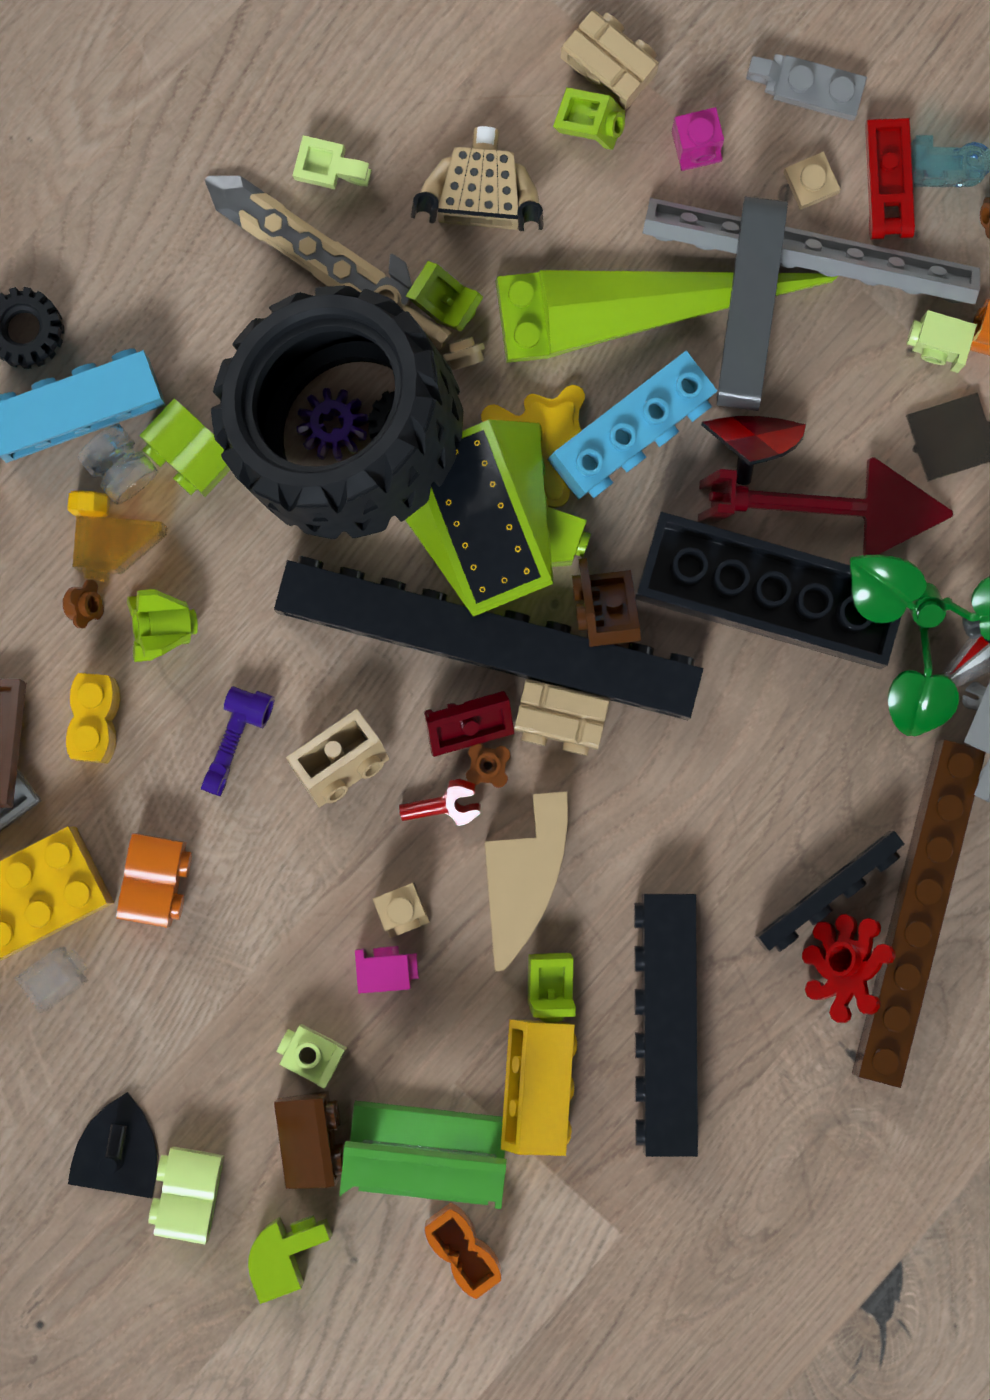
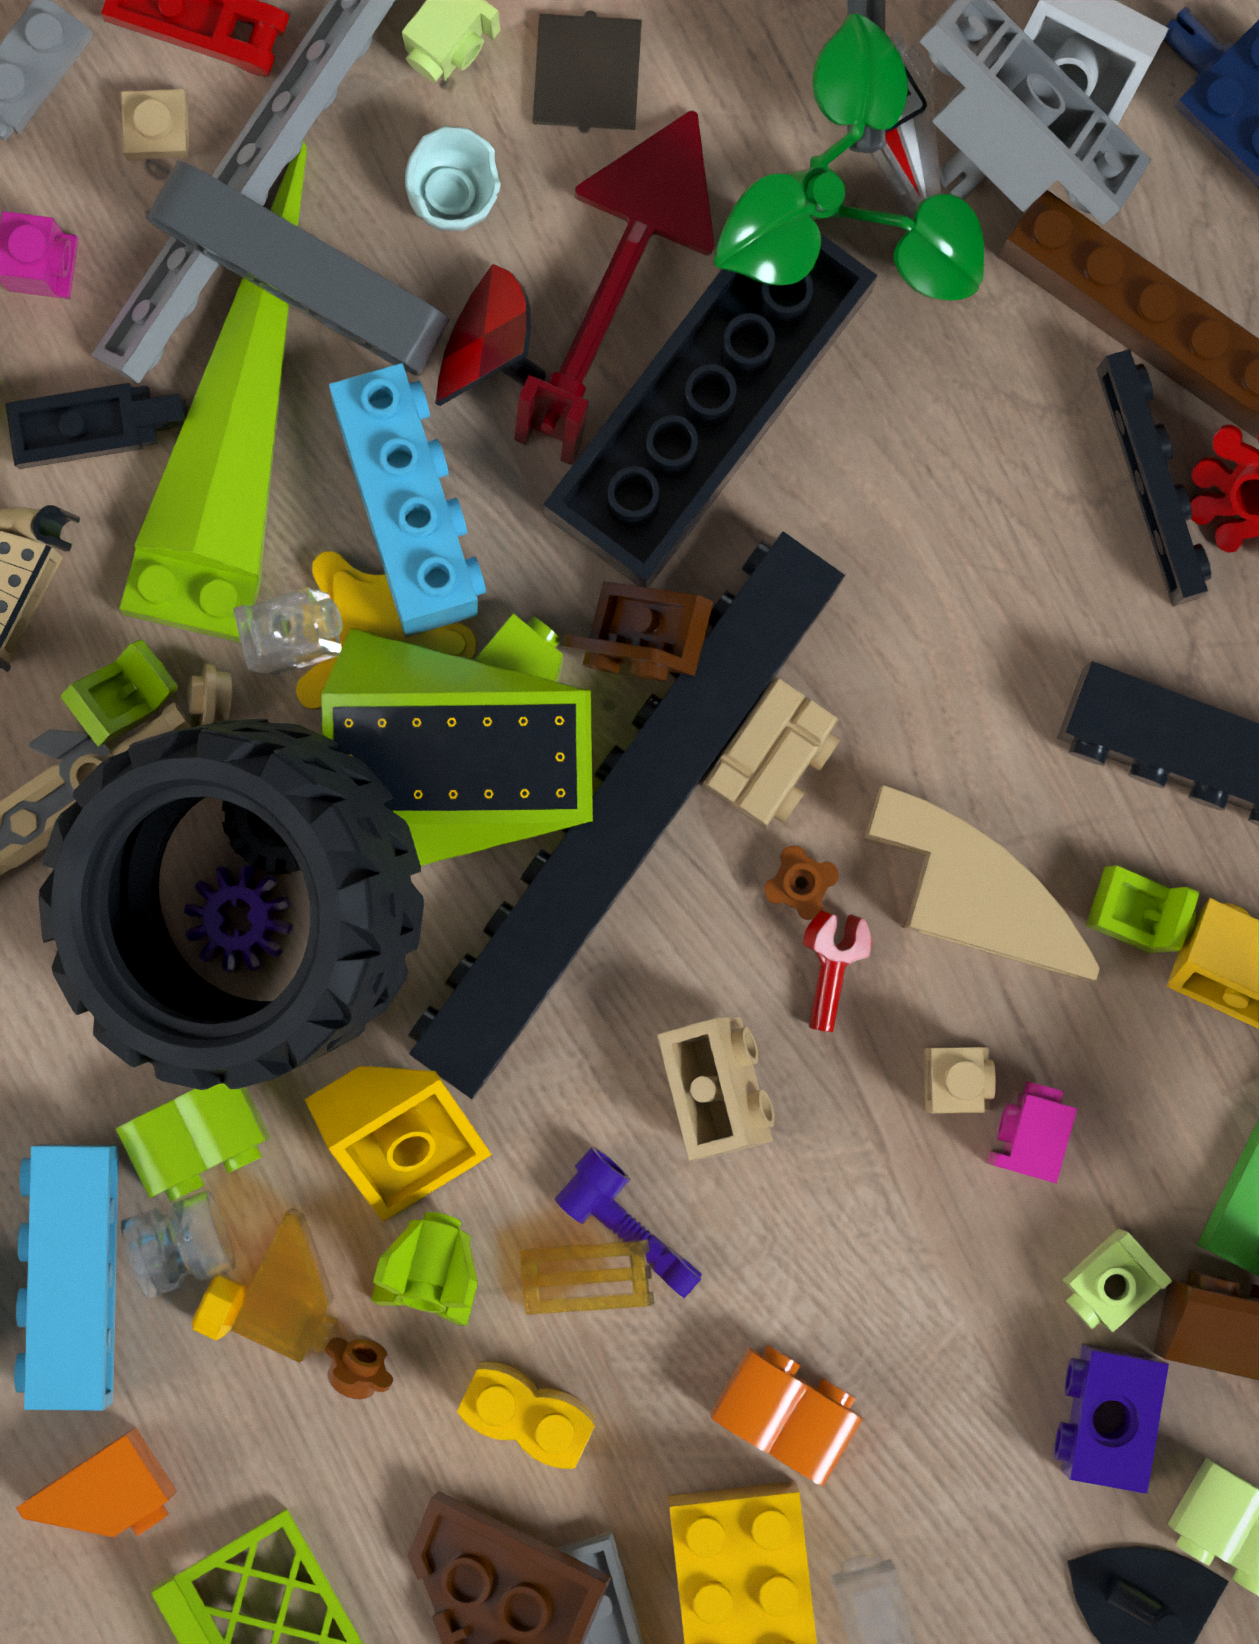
camera: 75 degrees left, 0 degrees up
(204, 1100) = (1126, 1454): none -> dark purple brick
(205, 753) = (637, 1273): none -> clear yellow tile
(234, 571) = (395, 1134): none -> yellow slope
(469, 723) = (734, 886): dark red plate -> none
(522, 385) = (275, 649): none -> clear brick
(606, 213) = (89, 423): none -> black hinge
(847, 378) = (452, 179): none -> light aqua hair

